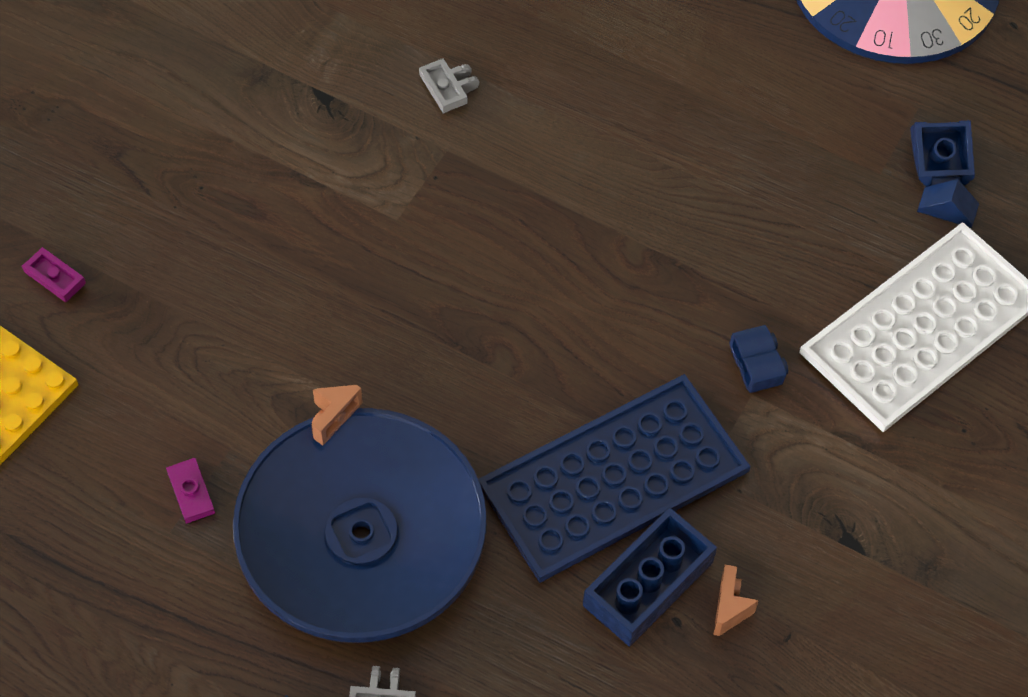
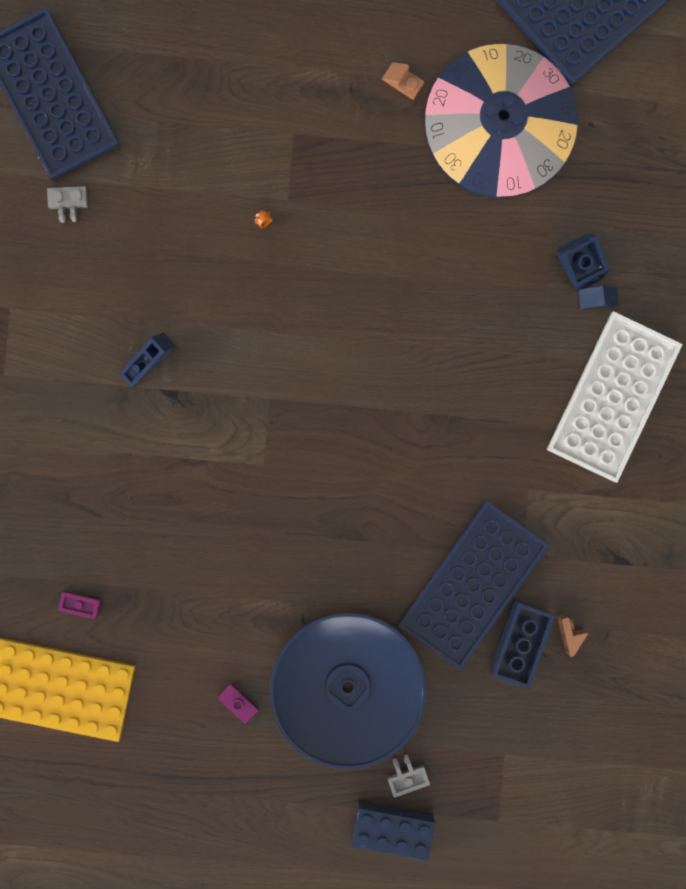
camera: 20 degrees left, 30 degrees up
(317, 43) = (147, 358): none -> dark blue slope
(336, 406) = (302, 632): nougat slope -> none
(447, 84) = (244, 352): light grey hinge -> none
(758, 358) = (525, 468): dark blue brick -> none

